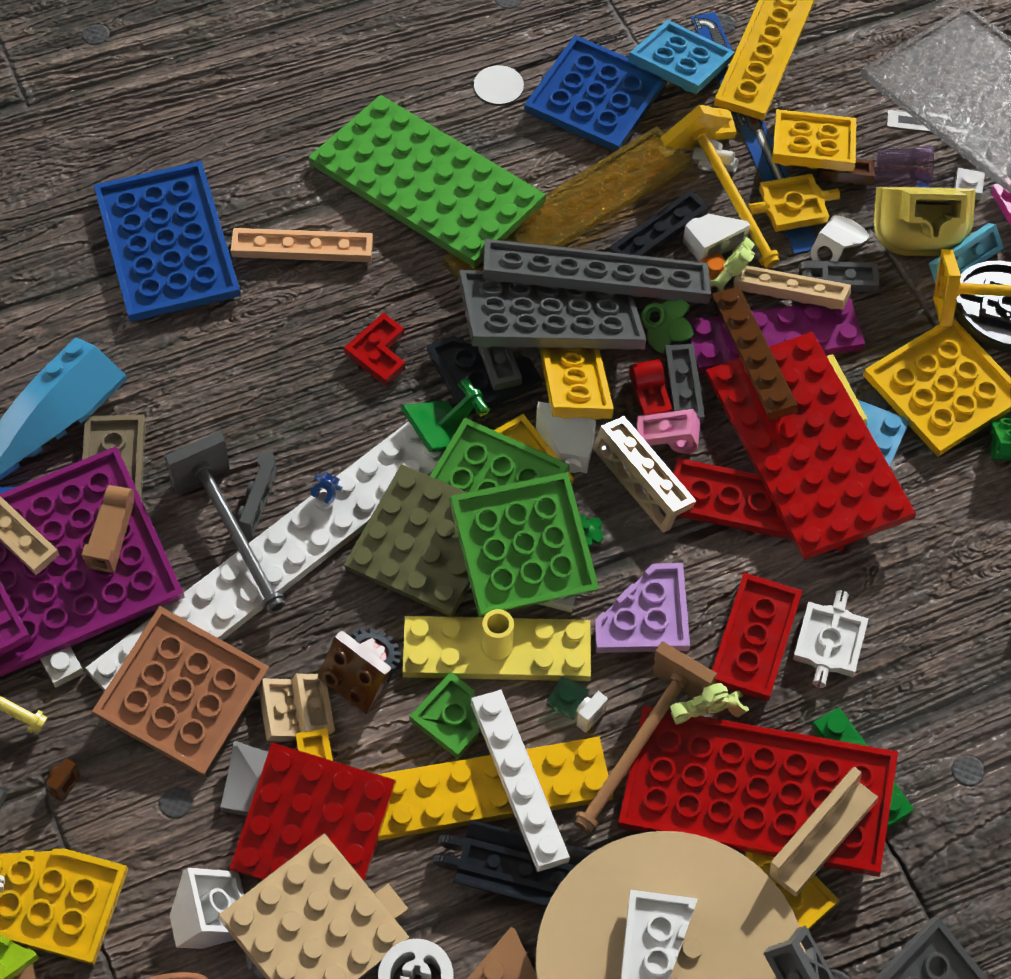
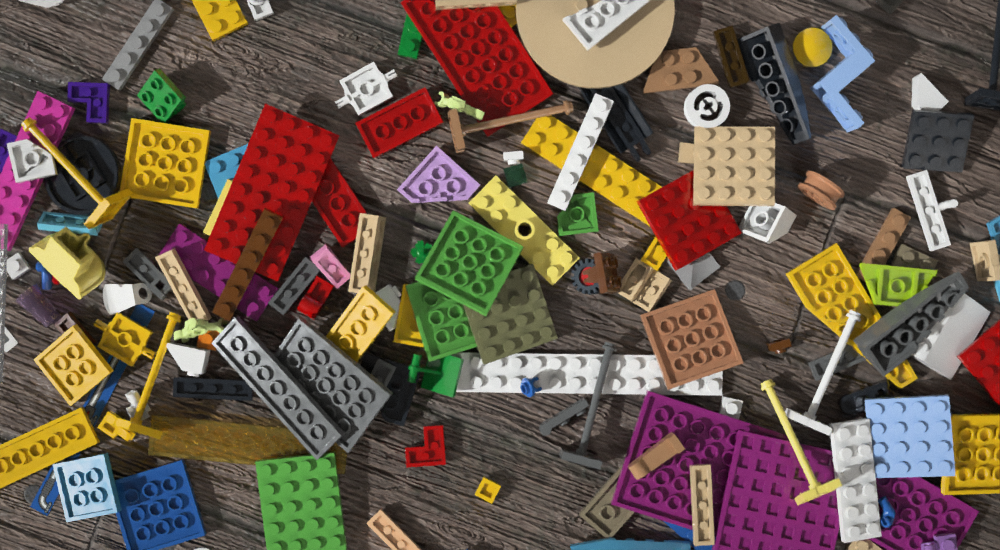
camera: 140 degrees left, 30 degrees up
(272, 362) = (487, 489): none -> yellow plate
(671, 325) = (268, 324): bright green plate -> none

